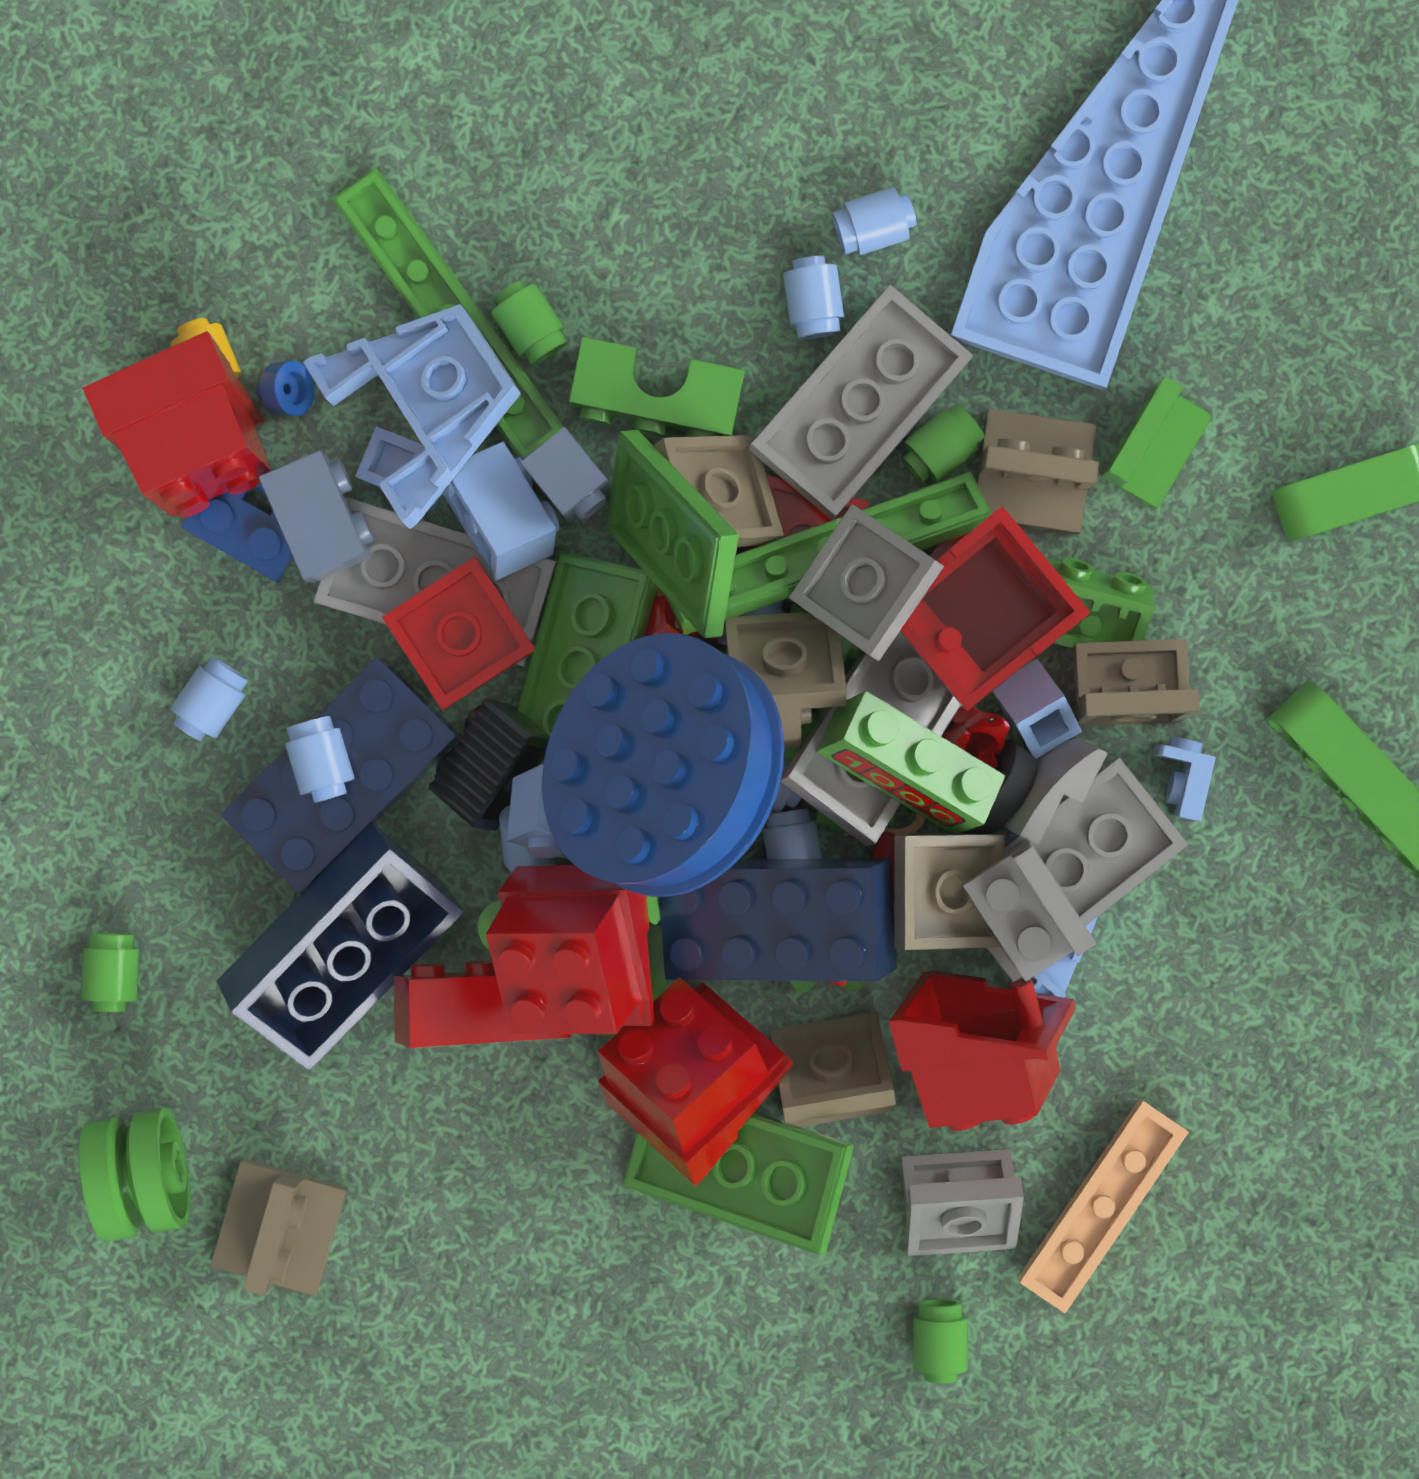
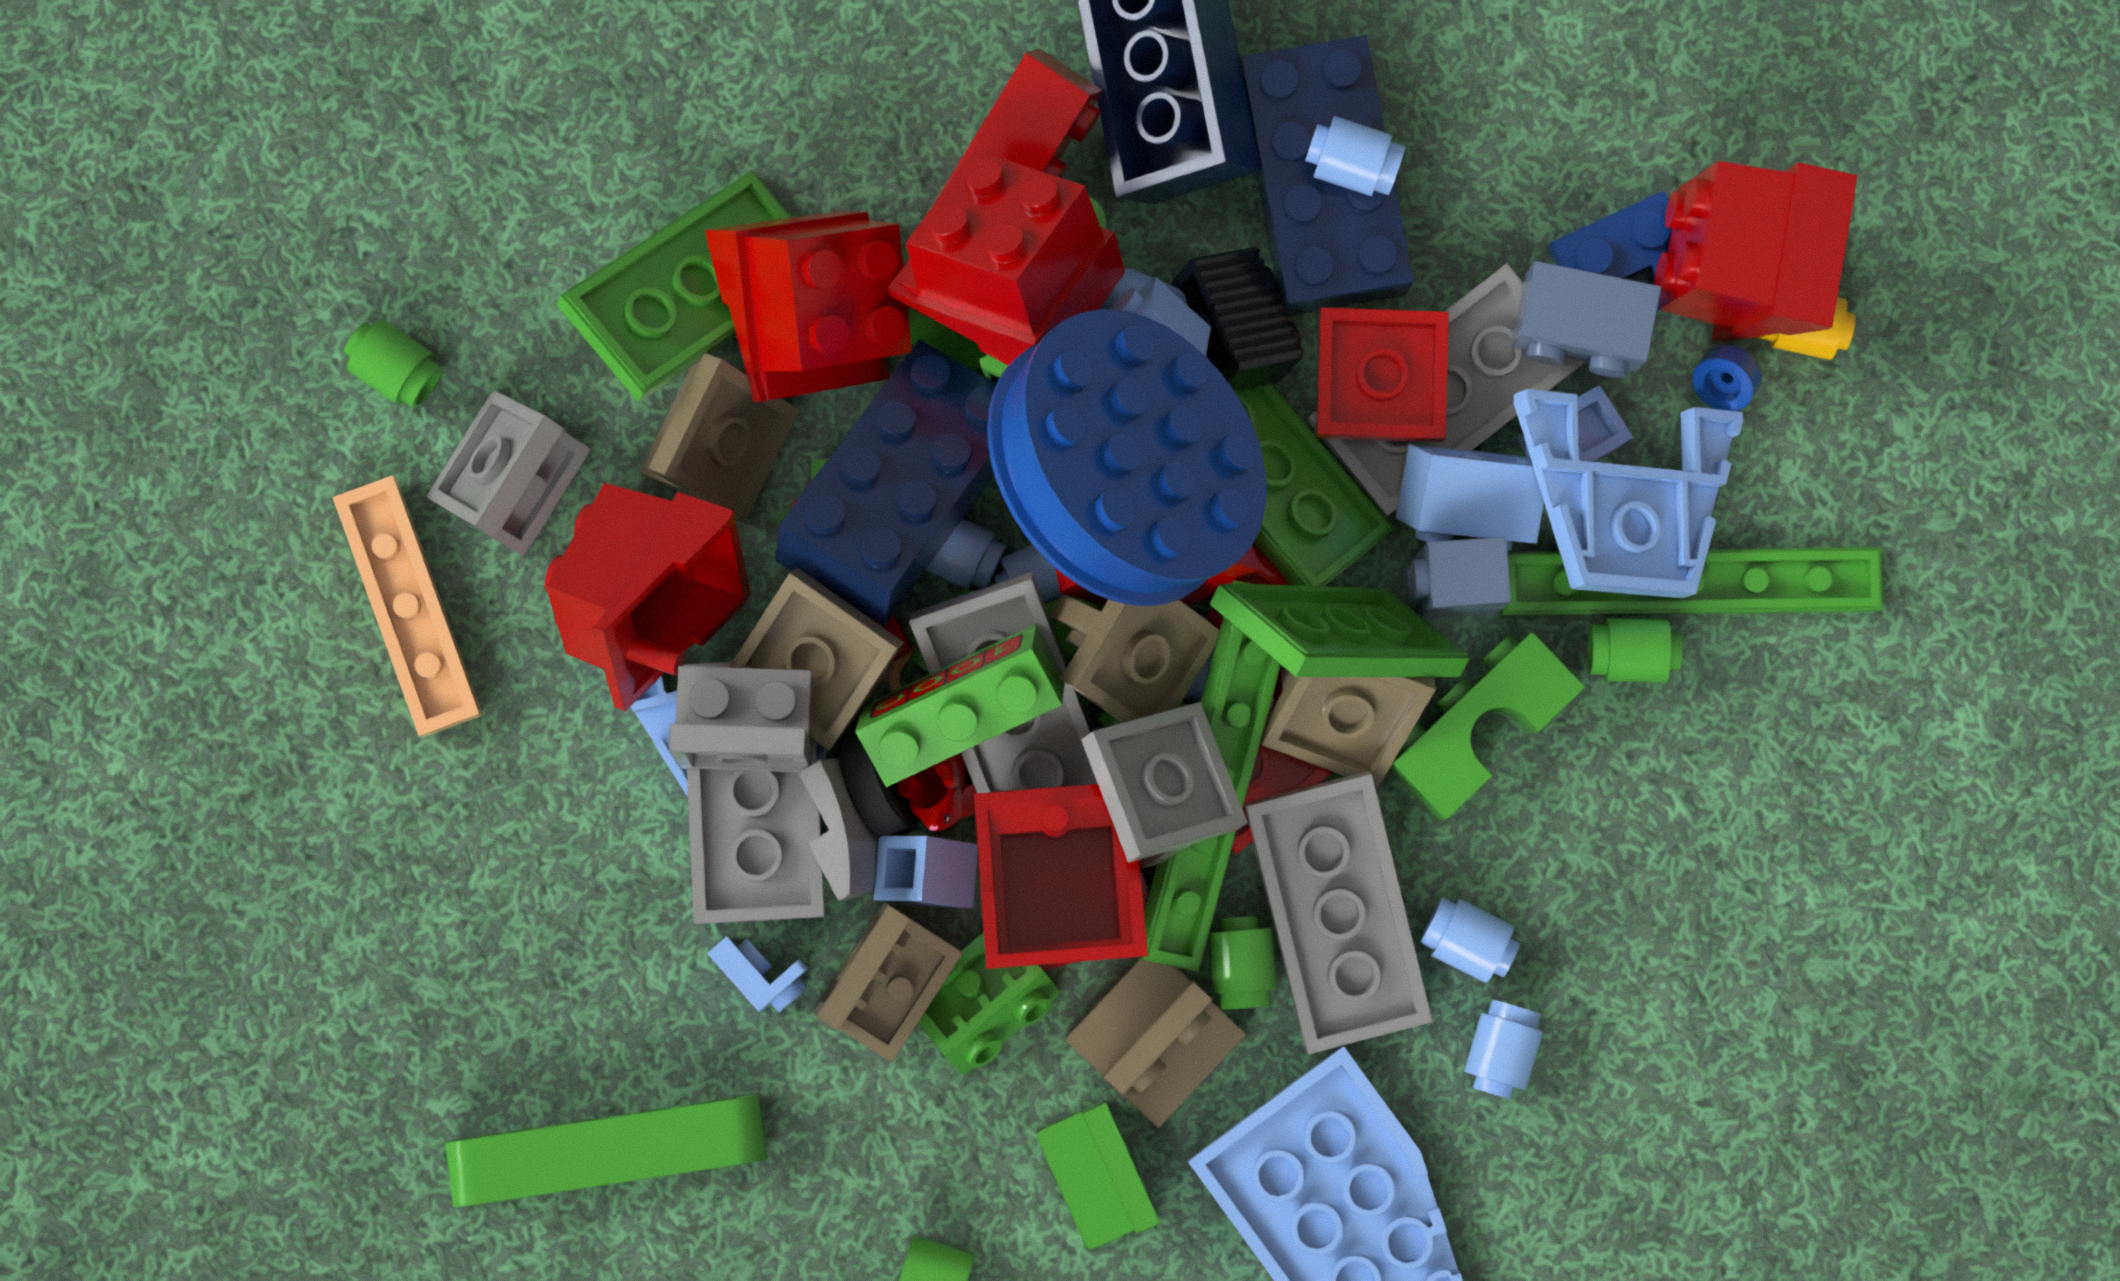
camera: 120 degrees right, 5 degrees down
(209, 699) = (1482, 104): light blue brick -> none

